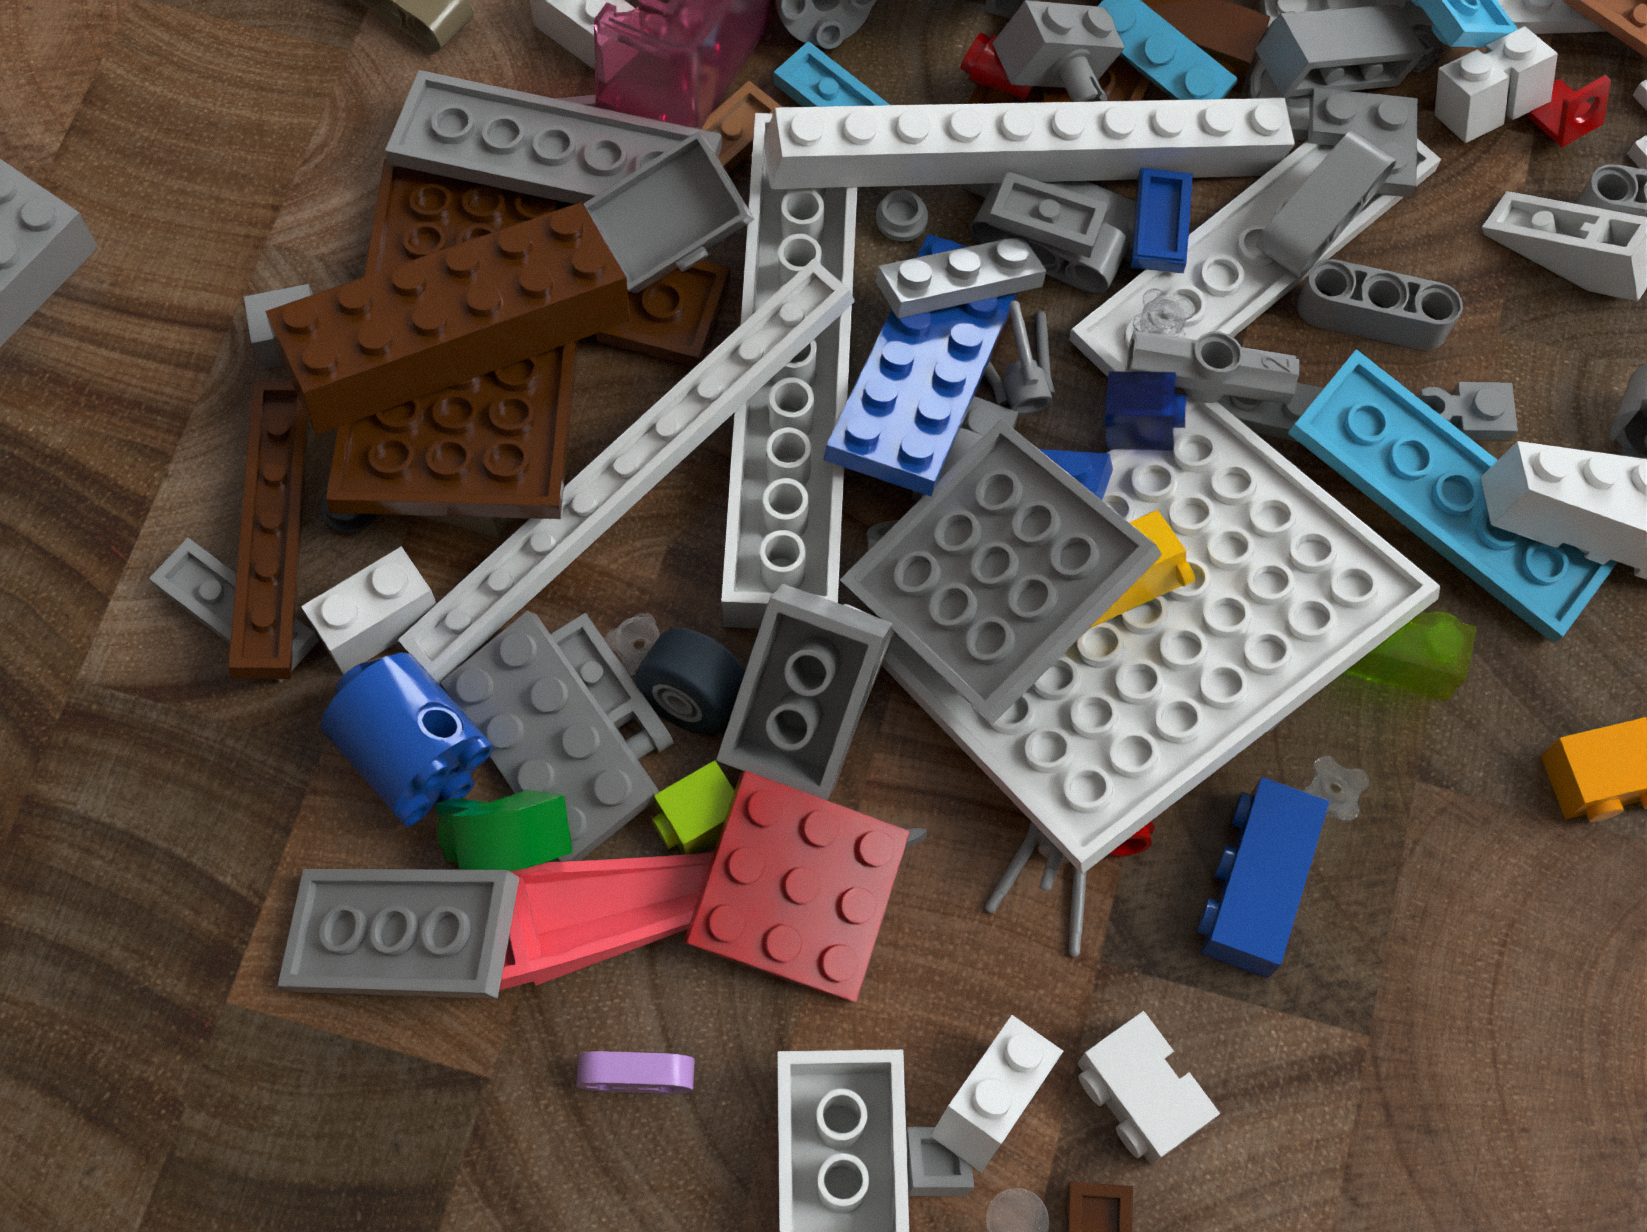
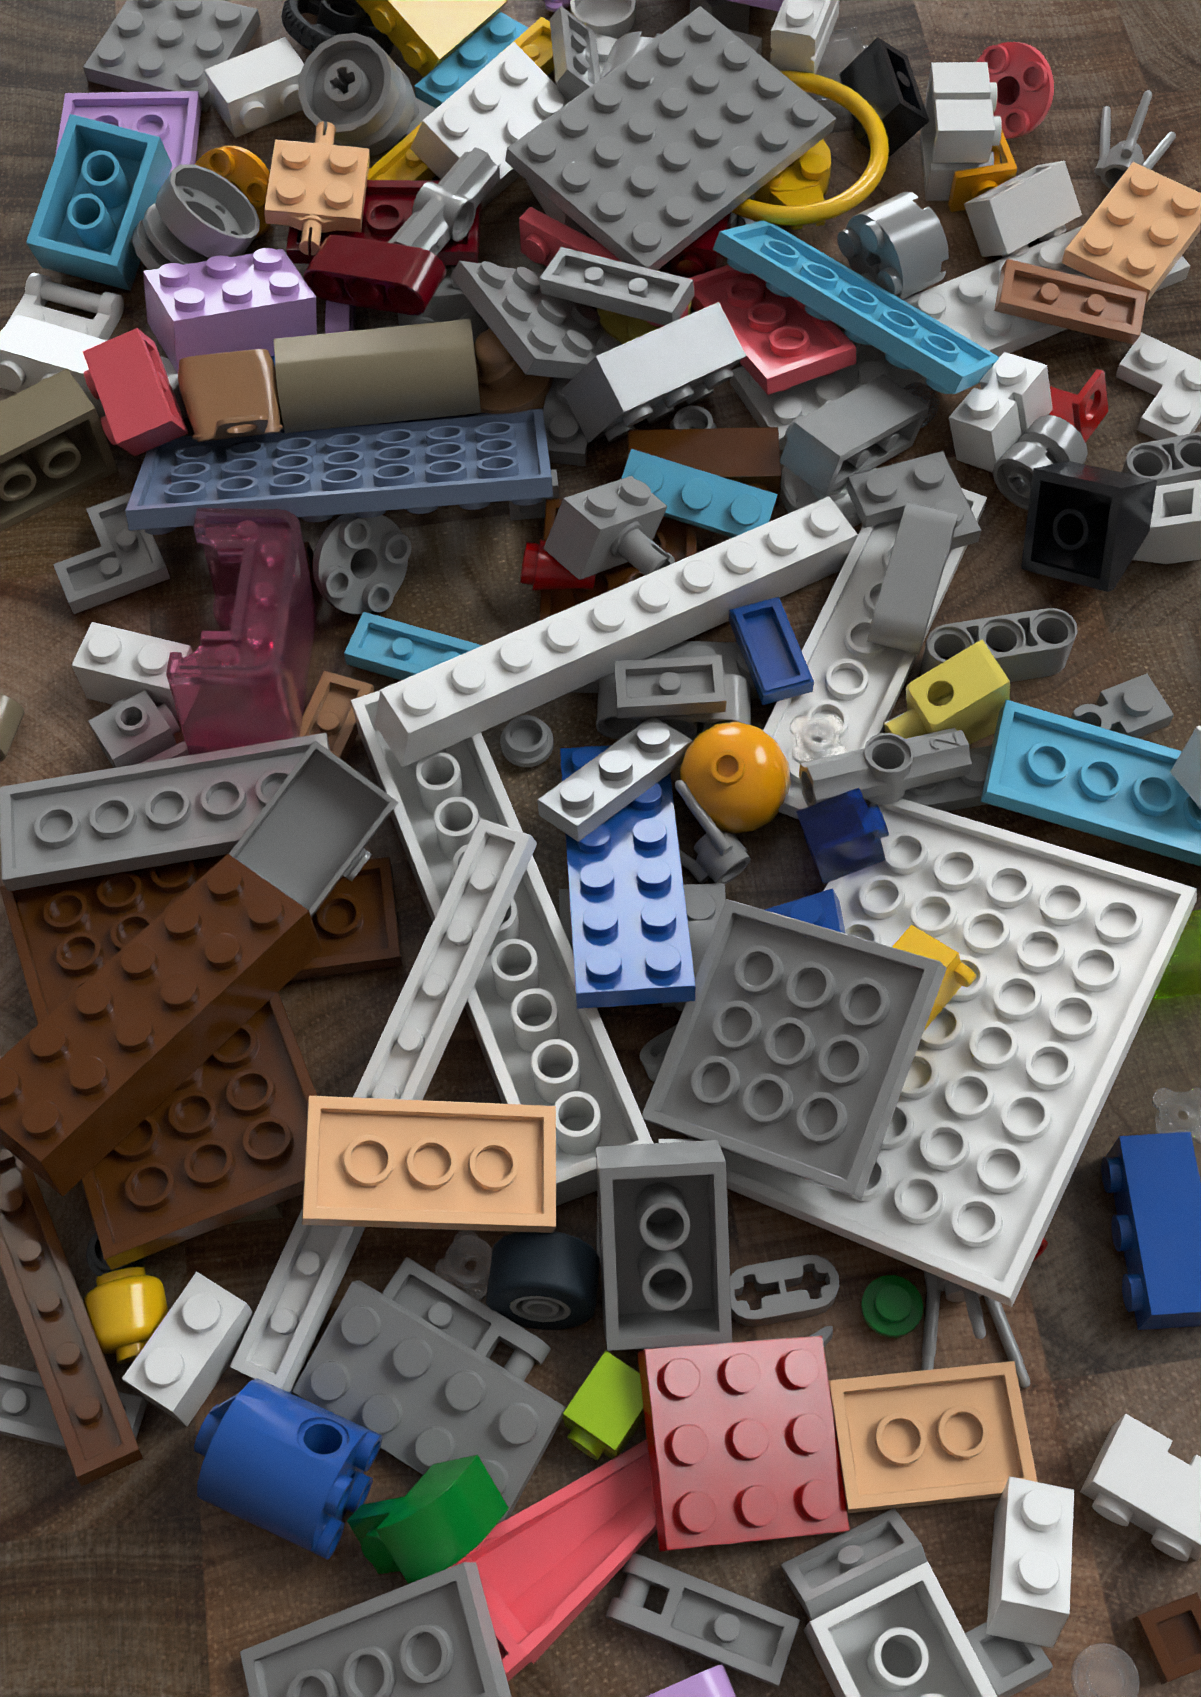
camera: 20 degrees left, 5 degrees down
(331, 554) = (125, 1311): none -> yellow head
(558, 67) = (134, 730): none -> light grey brick
(631, 536) = (430, 1165): none -> light nougat plate
(698, 1018) = (706, 1620): none -> light grey plate
(846, 1026) = (853, 1563): none -> light grey plate
(898, 767) = (784, 1304): none -> light grey beam
(964, 956) = (930, 1436): none -> light nougat plate
(987, 836) = (892, 1306): none -> green plate
(1072, 319) = (737, 776): none -> light orange cylinder
(1314, 326) = (958, 694): none -> light yellow torso
(1509, 146) = (1042, 444): none -> light grey wheel
(1521, 217) = (1086, 523): none -> black slope

